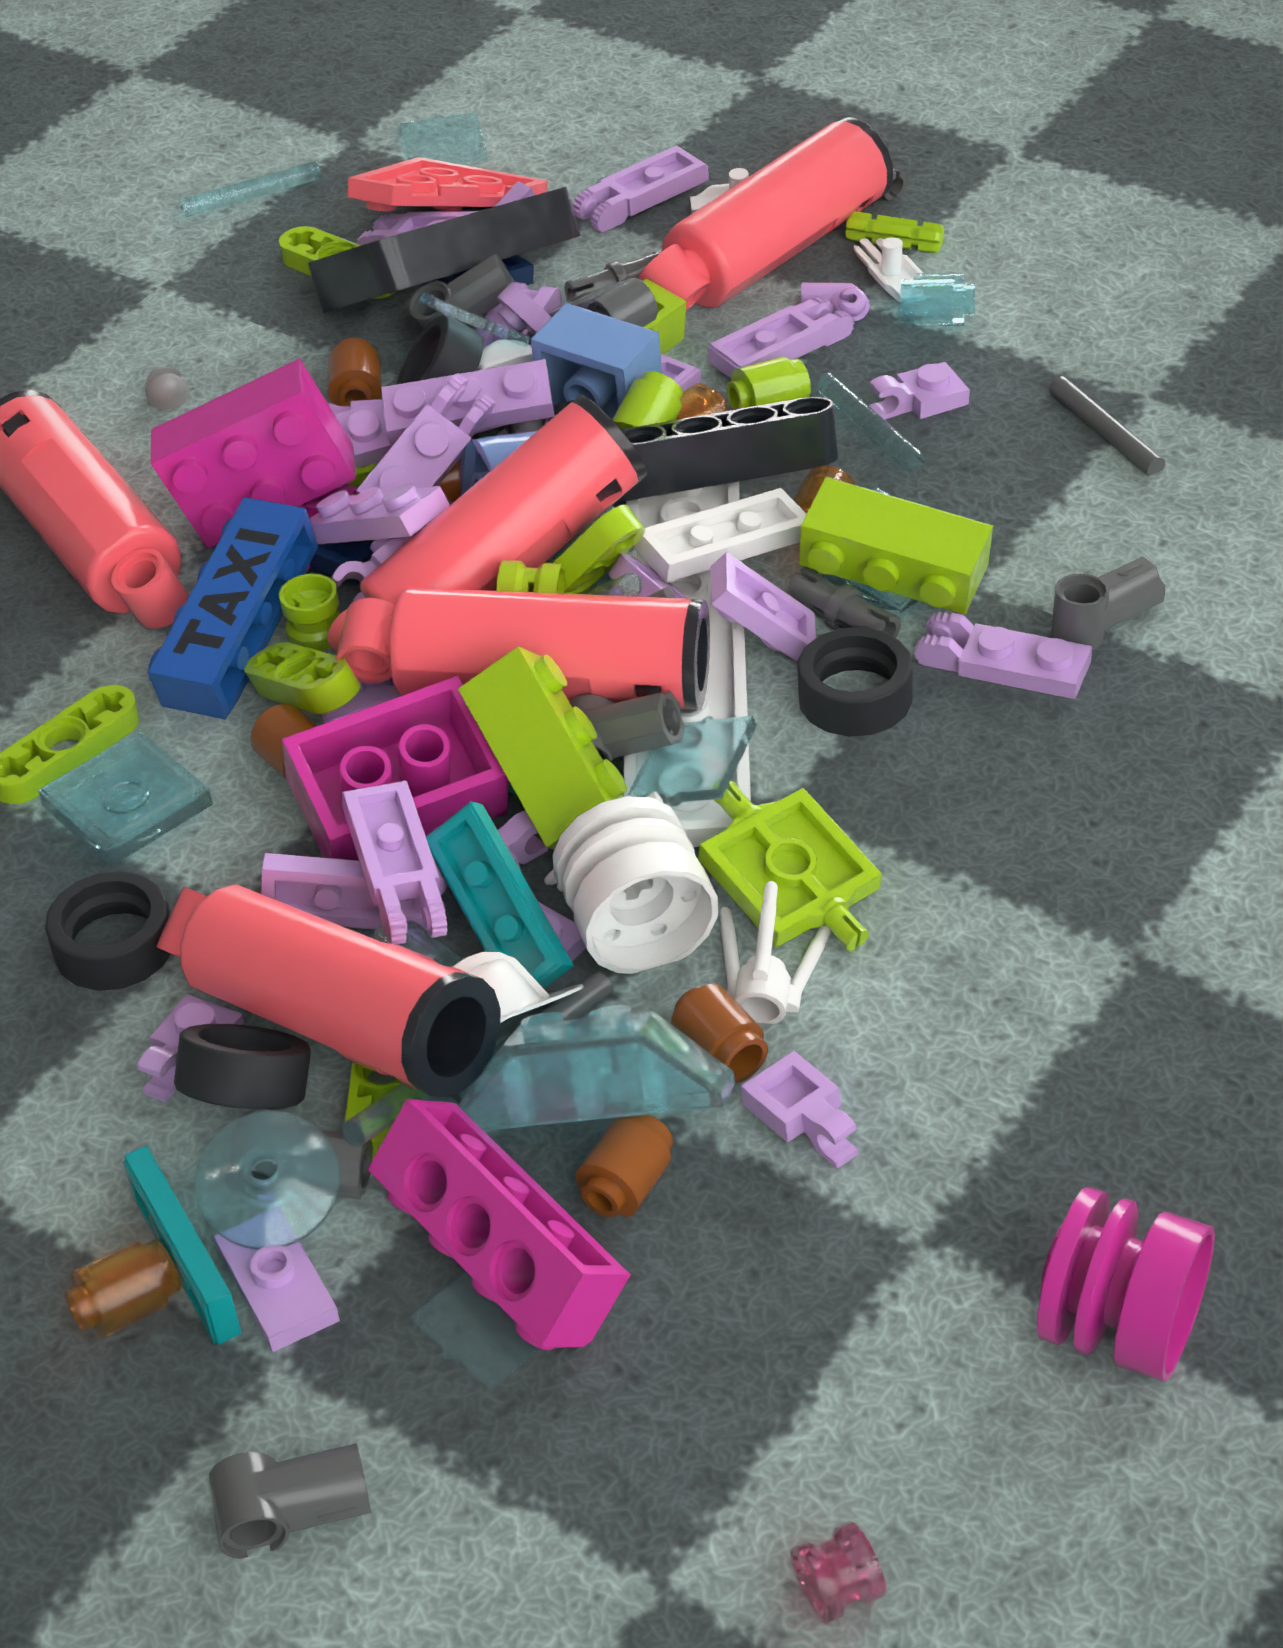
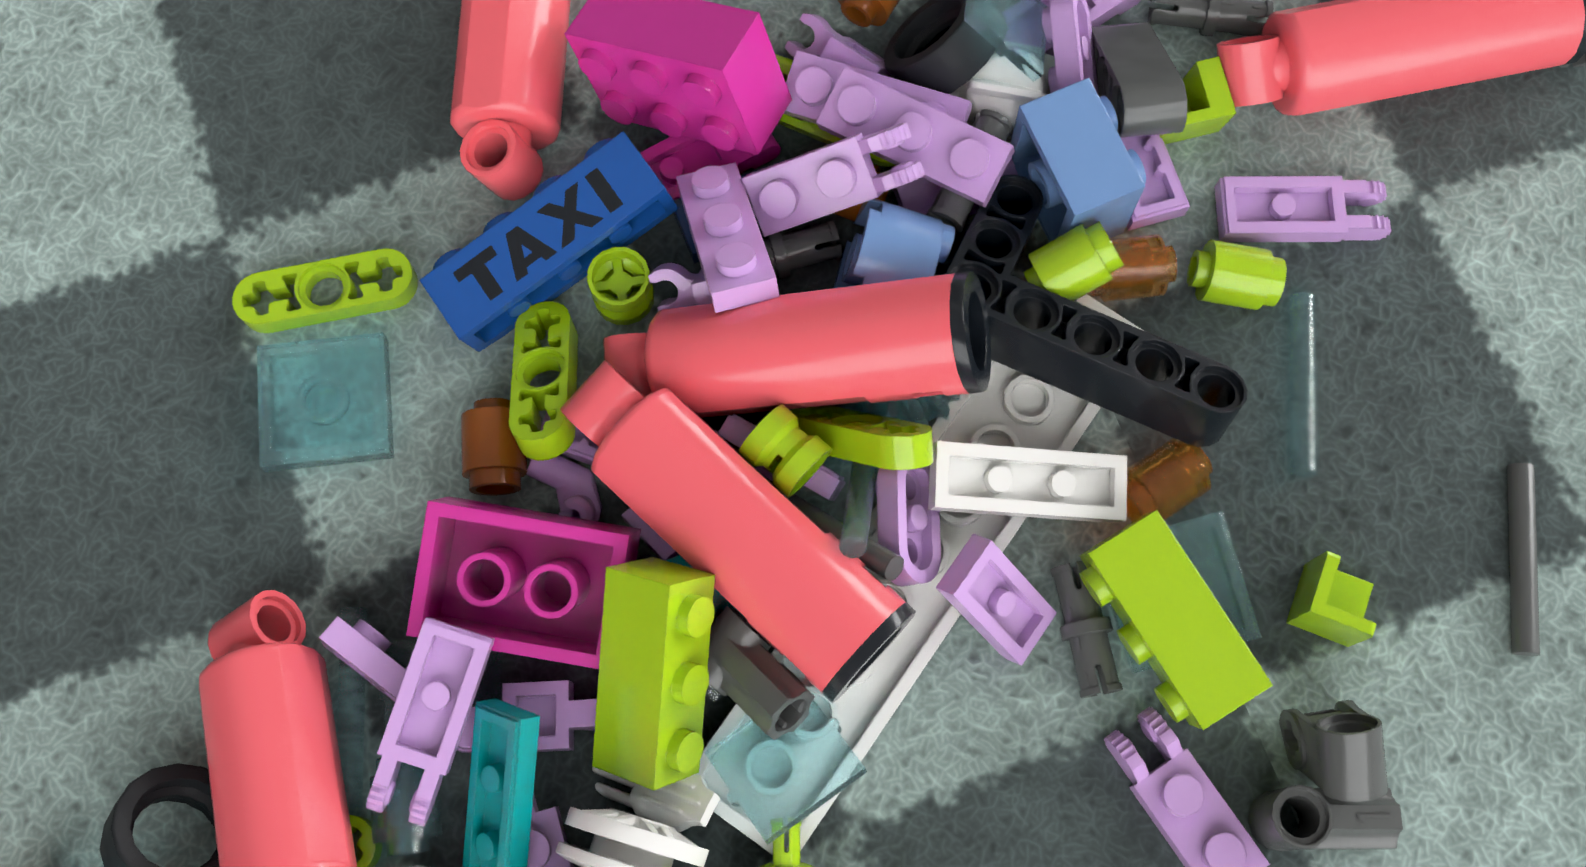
camera: 30 degrees right, 30 degrees up
(115, 964) = (167, 532): black tyre -> none
(162, 1055) = (178, 741): lavender plate -> none
(843, 296) = (1405, 187): lavender arm -> none
(857, 711) = (1070, 730): black tyre -> none
(890, 265) = (1484, 184): white piece -> none
(922, 390) = (1384, 379): lavender plate -> none
(927, 237) = (1528, 127): lime axle -> none
(936, 299) = (1491, 266): clear light blue brick -> none
(1002, 502) = (1332, 602): none -> lime panel
(1070, 543) = (1338, 750): none -> dark grey piece

